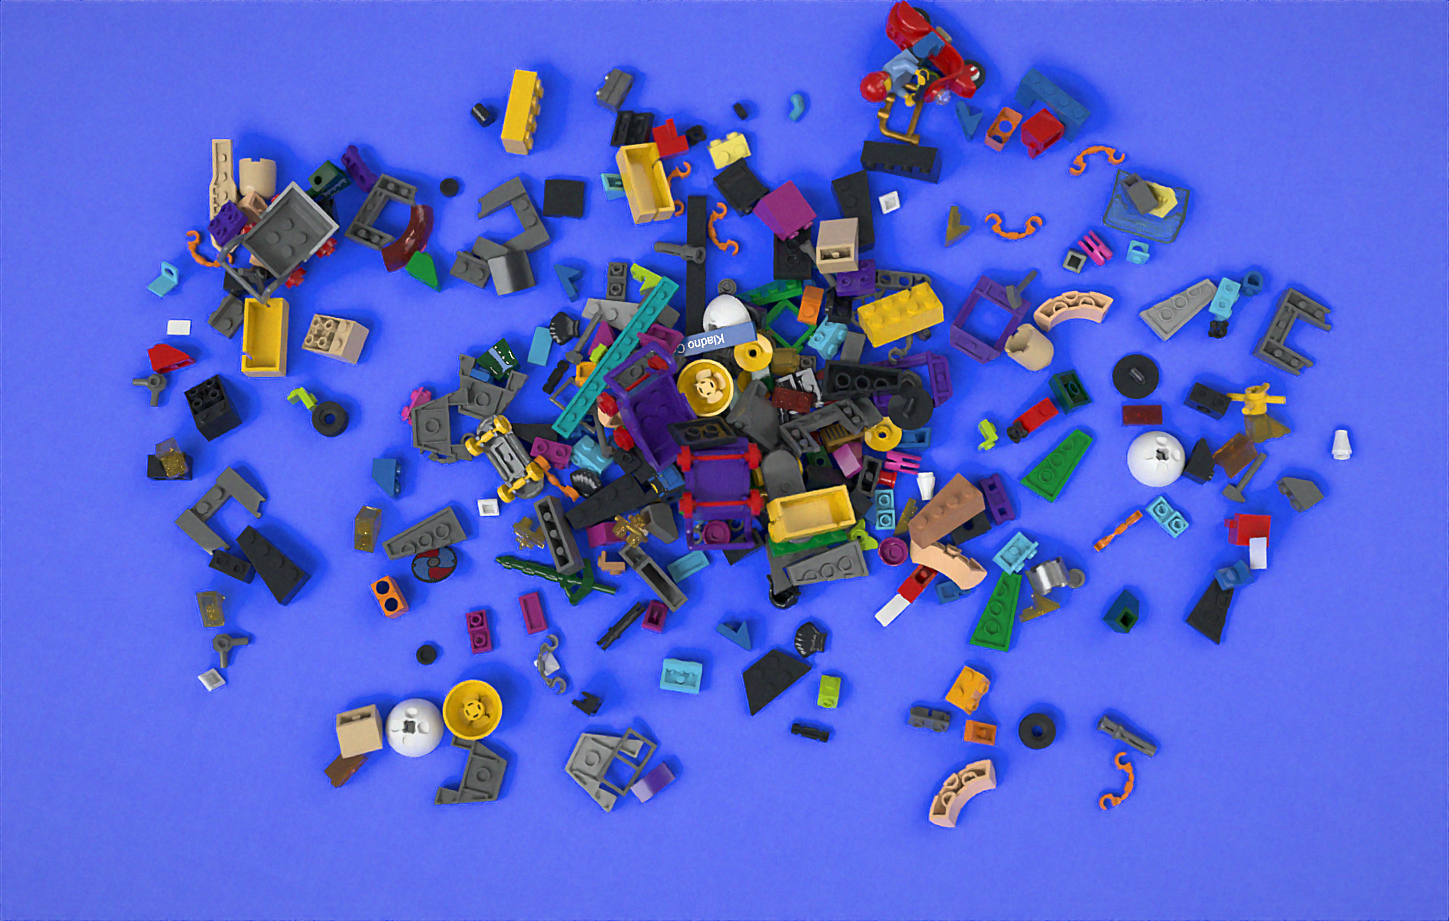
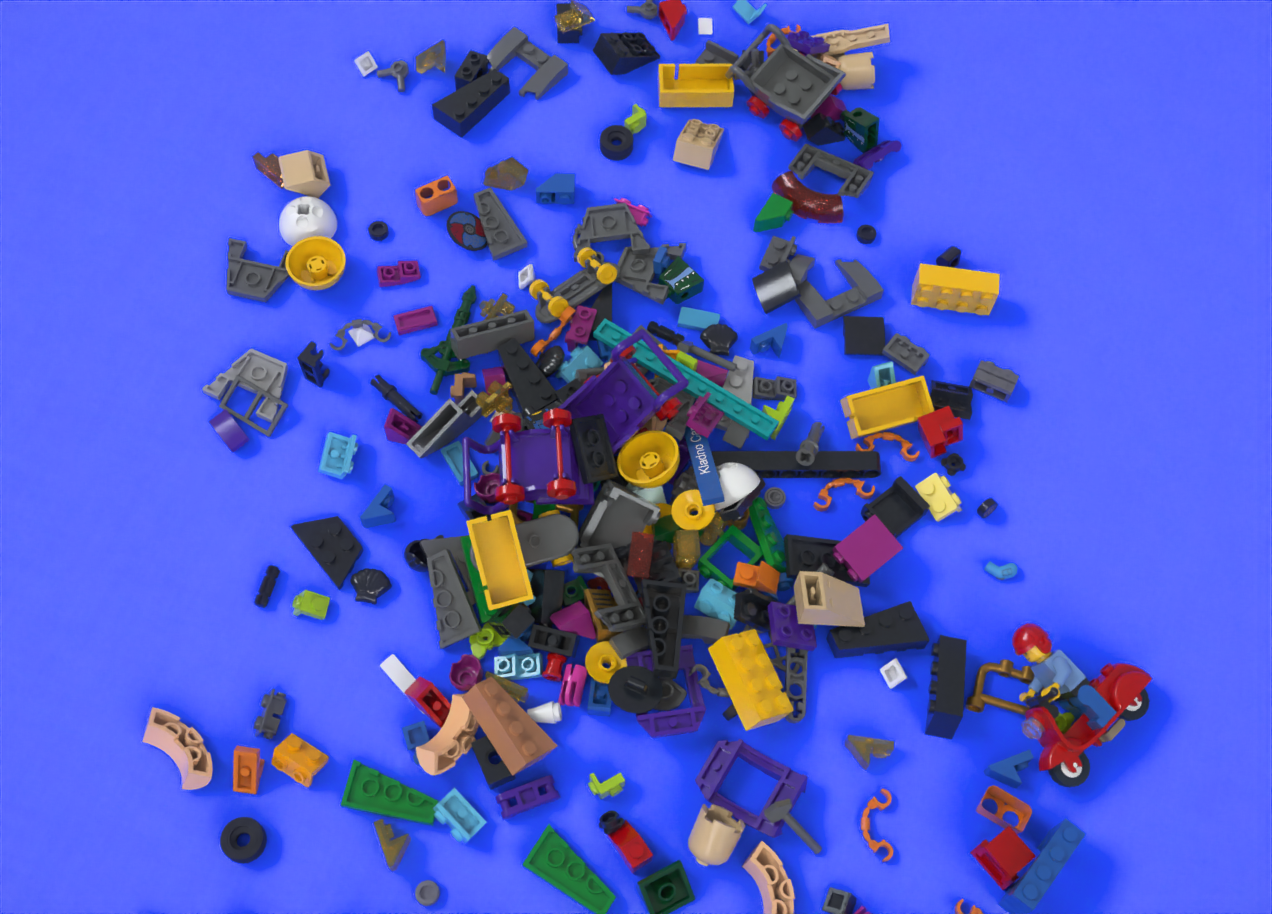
camera: 80 degrees right, 15 degrees down
(586, 163) = (906, 353): none -> dark grey bracket
(1048, 575) = (428, 852): flat silver brick -> none

